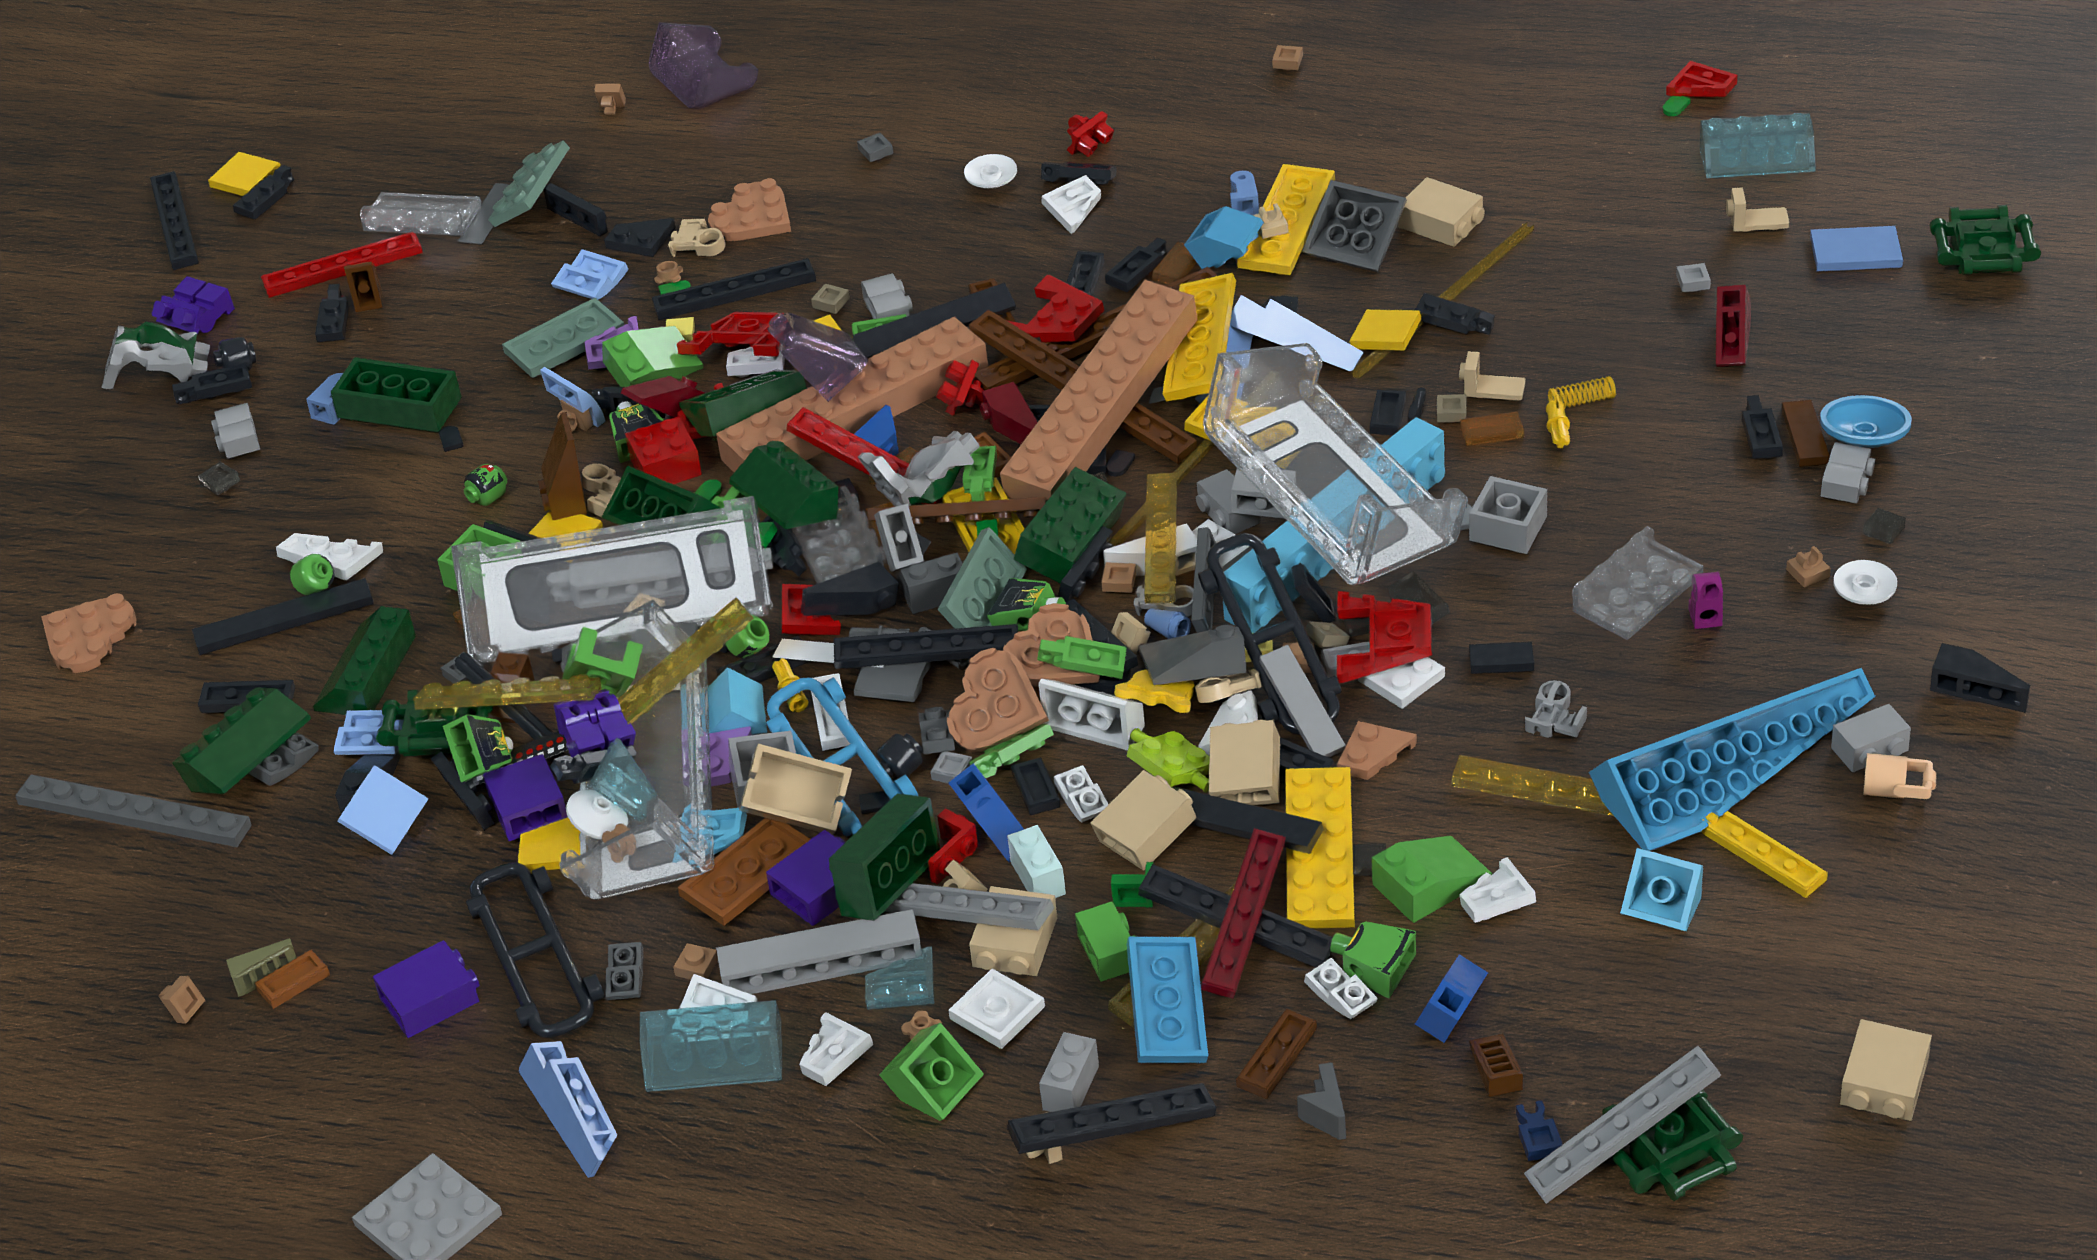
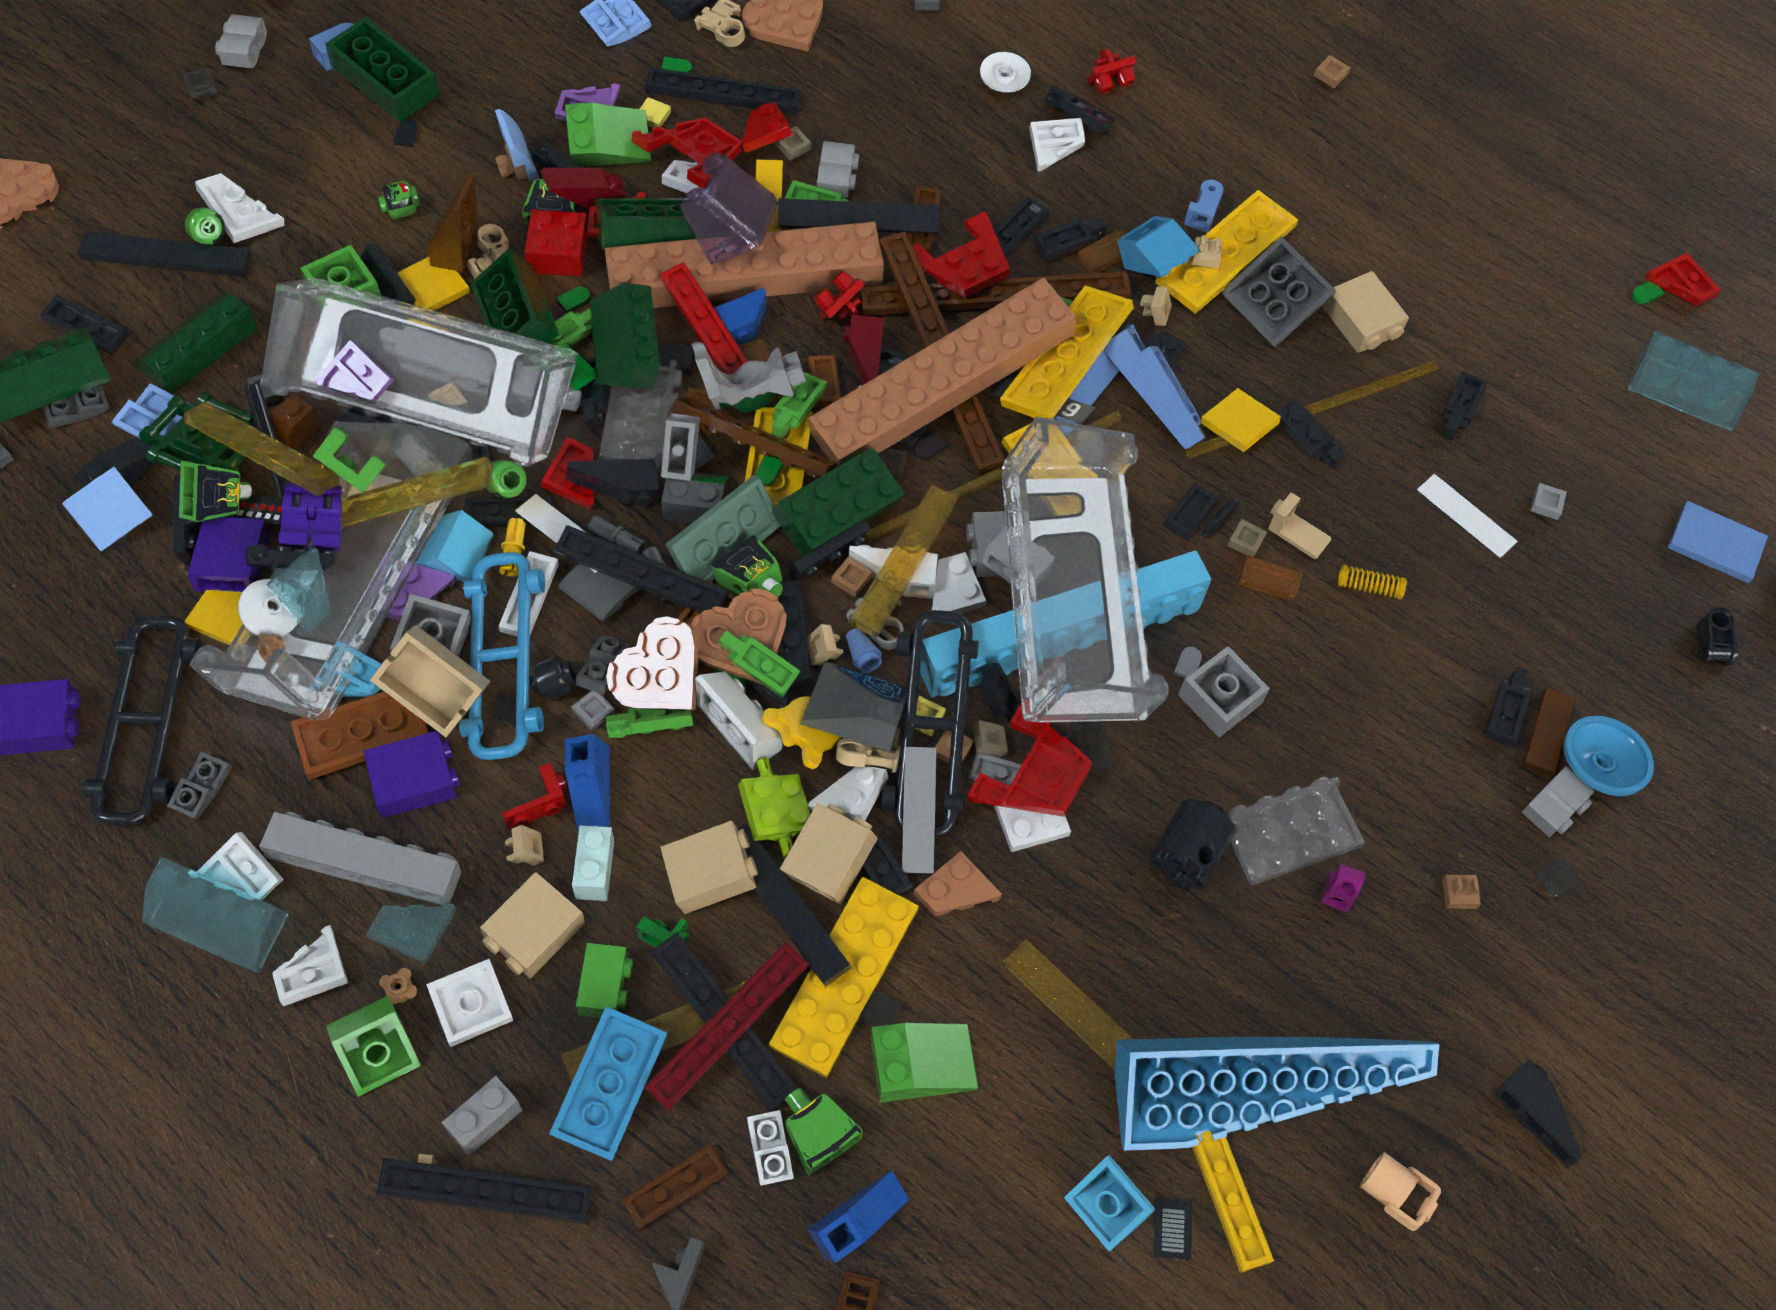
camera: 15 degrees right, 20 degrees up
(548, 616) = (355, 373): none -> wing
(560, 337) = (548, 73): sand green plate -> none
(569, 1103) = (72, 907): medium blue wedge -> none
(668, 272) = (679, 47): medium nougat plate -> none
(695, 961) = (261, 806): medium nougat plate -> none
(798, 293) = (765, 127): none -> red wing
(884, 857) = (460, 796): dark green brick -> none
(974, 906) = (502, 883): light grey tile -> none
(1035, 786) = (650, 769): black tile -> none
(1080, 793) = (681, 801): white slope -> none
(1202, 605) = (932, 599): dark grey tile -> none
(1253, 279) = (1157, 305): none -> tan tile
(1497, 893) = (967, 1116): white wing -> none
(1501, 657) = (1126, 844): black tile -> none
(1554, 712) = (1137, 940): light grey piece -> none
(1558, 423) = (1330, 606): yellow axle -> none
(1558, 623) = (1193, 843): none -> black cylinder
(1571, 241) = (1462, 403): none -> black hinge
(1630, 318) = (1467, 515): none -> white sticker
(1728, 894) = (1173, 1229): none -> black sticker
(1732, 325) = (1550, 579): dark red slope -> none
(1754, 219) = (1644, 461): tan bracket -> none
(1865, 582) = (1511, 932): white dish -> none
(1872, 732) = (1403, 1127): light grey brick -> none
(1901, 308) = (1718, 641): none -> black piece

